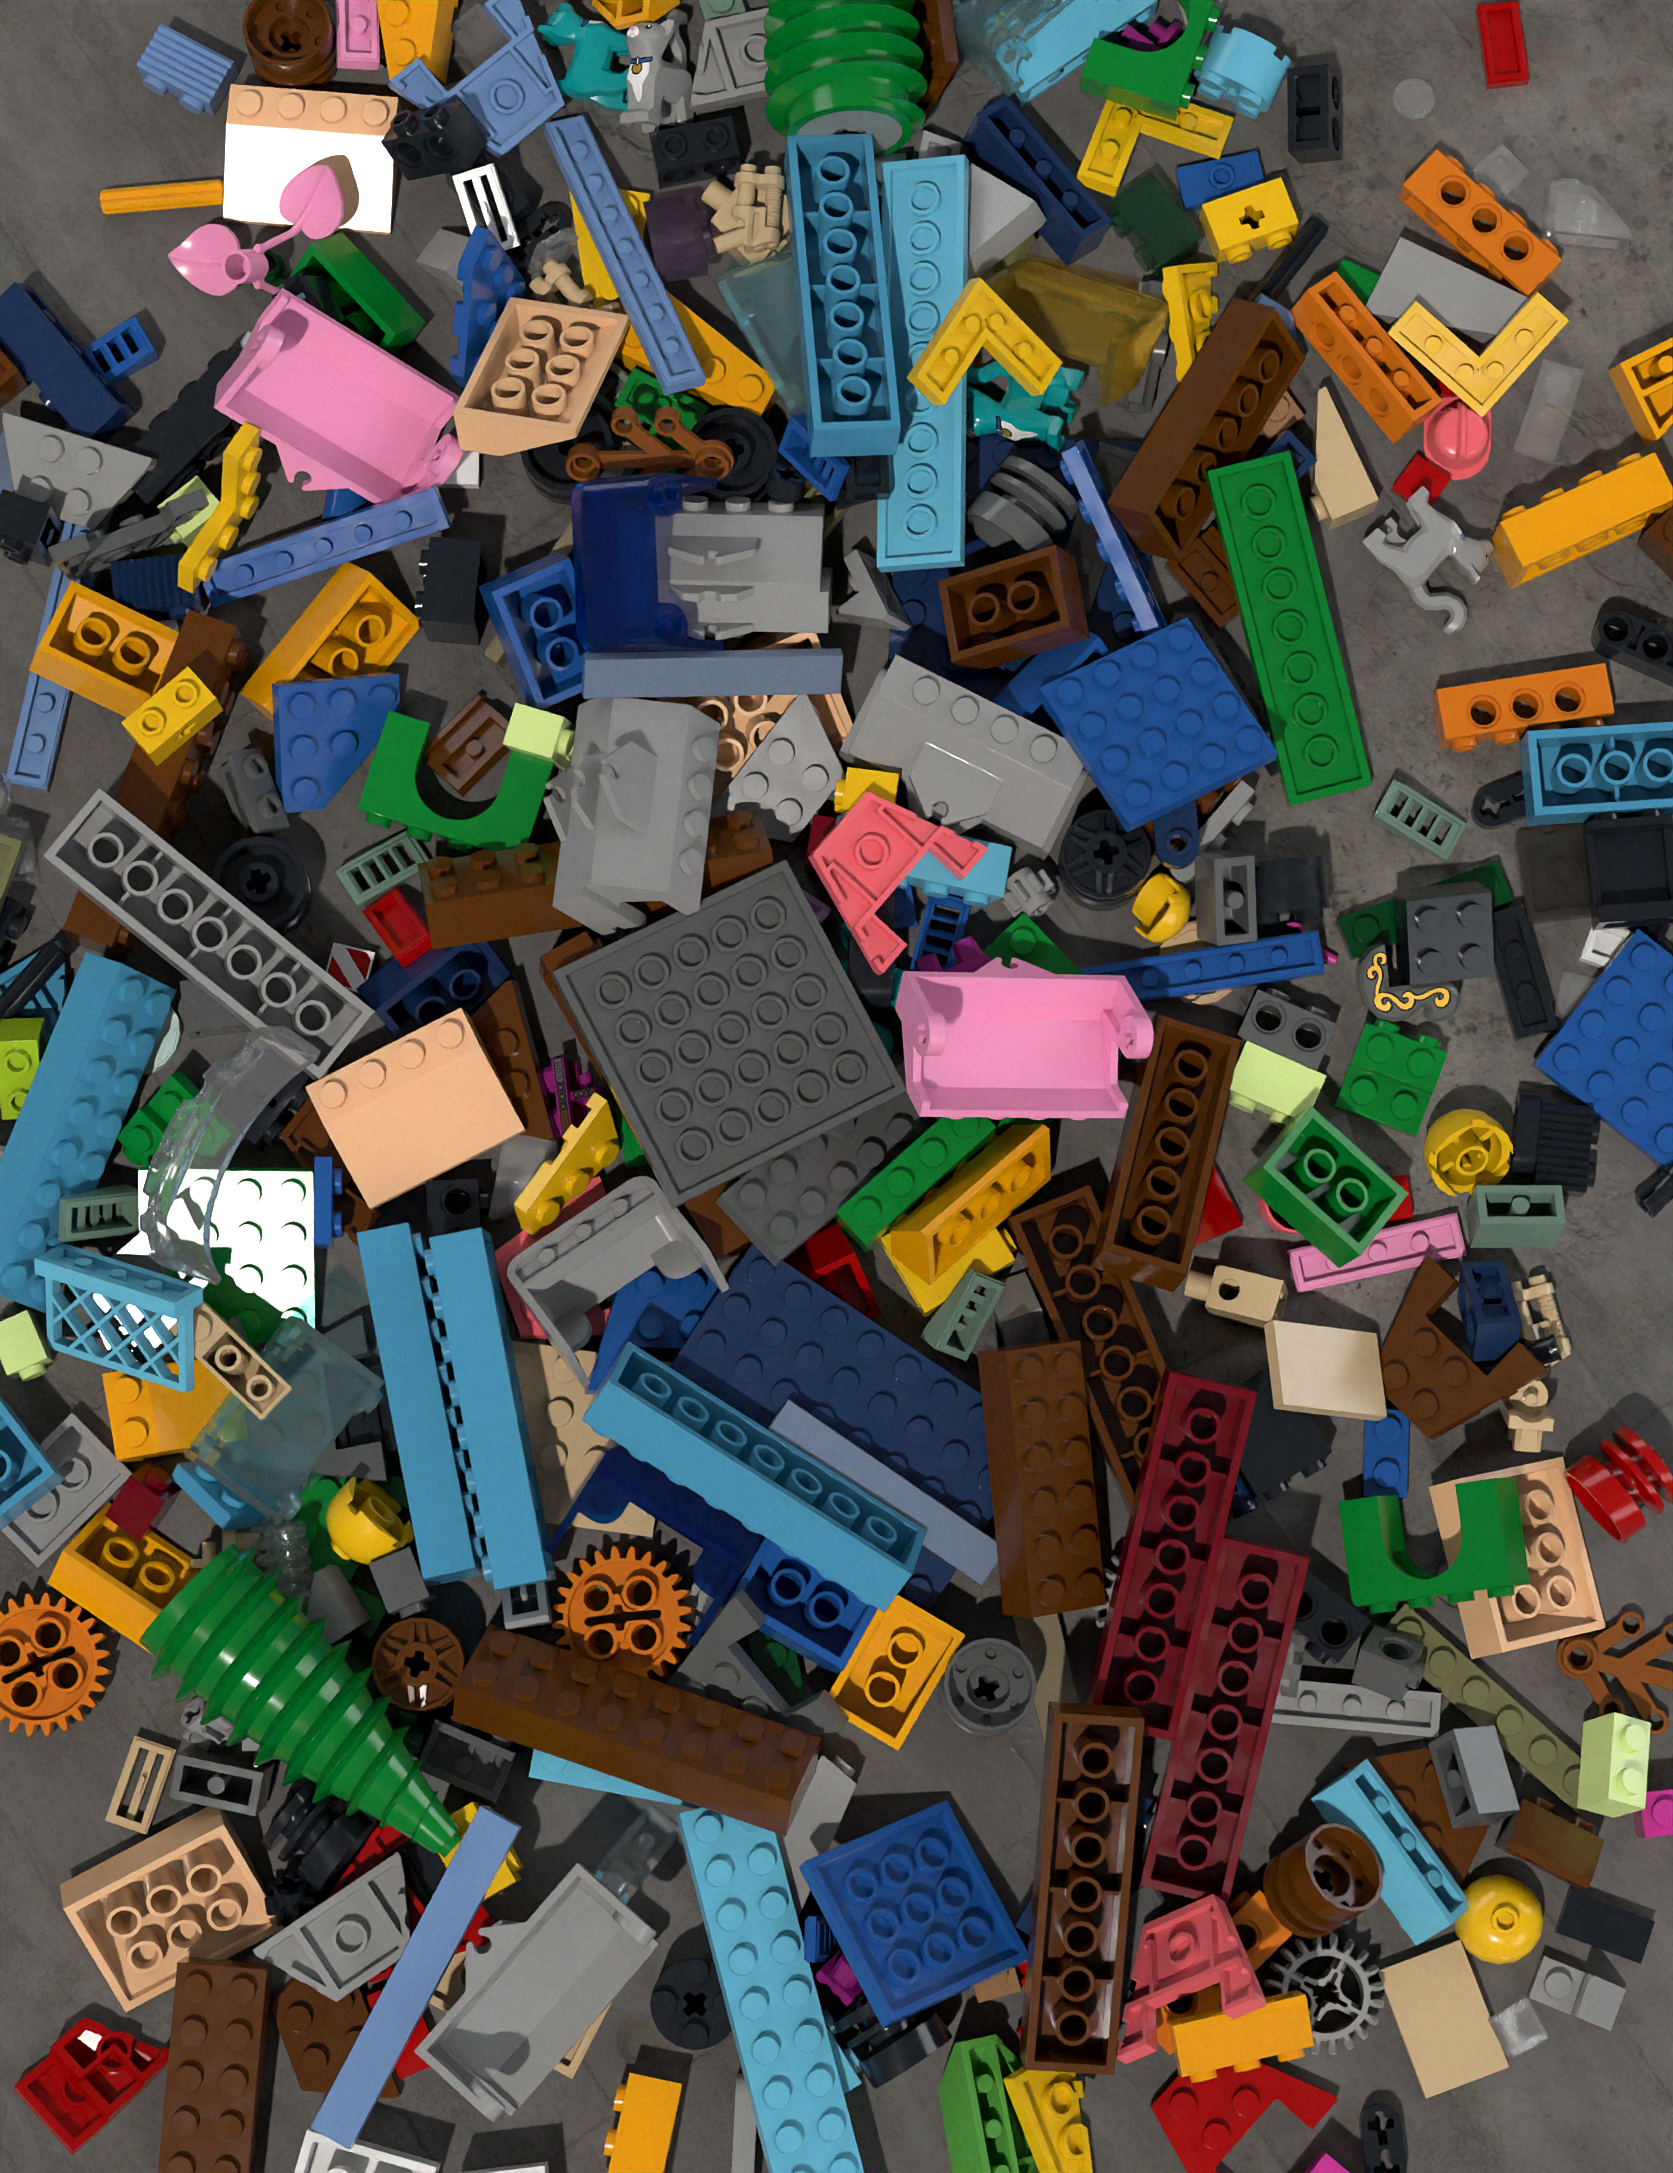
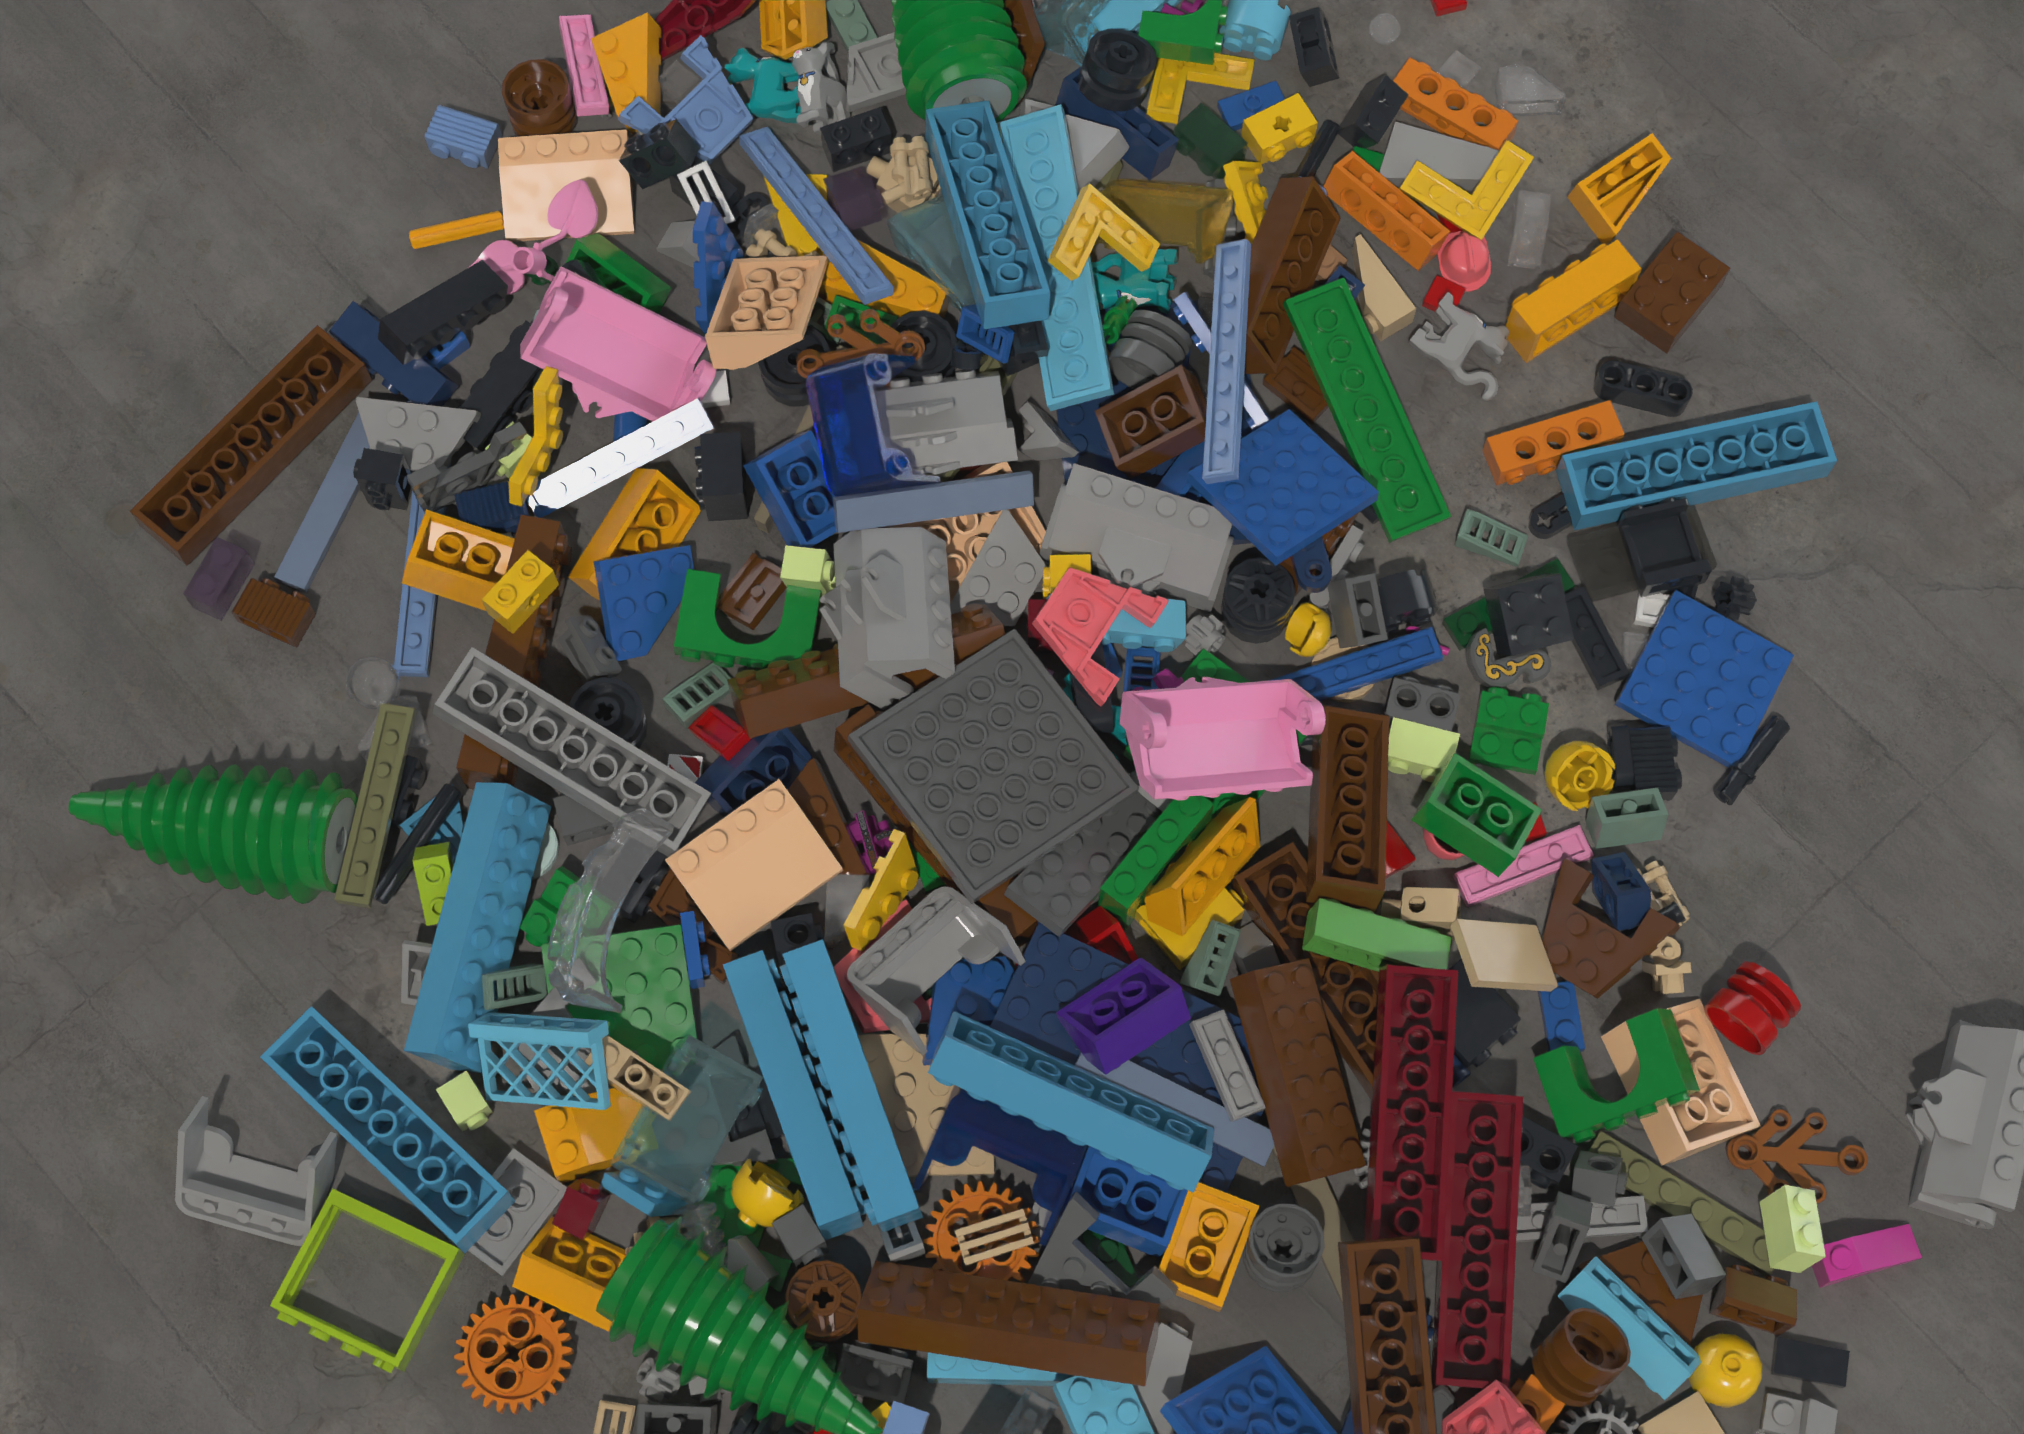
camera: 10 degrees left, 10 degrees down
(127, 316) = (442, 312): none -> black brick
(600, 1625) = (964, 1246): none -> tan tile
(838, 1377) = (1124, 1015): none -> dark purple slope
(956, 1456) = (1227, 1066): none -> light grey tile
(989, 456) = (1117, 318): none -> green pin
(1046, 115) = (1116, 70): none -> black wheel
(1114, 548) = (1227, 362): none -> medium blue tile
(1167, 1330) = (1370, 939): none -> bright green brick
(1330, 1730) = (1562, 1237): none -> dark grey slope
(1373, 218) = (1372, 112): none -> black brick

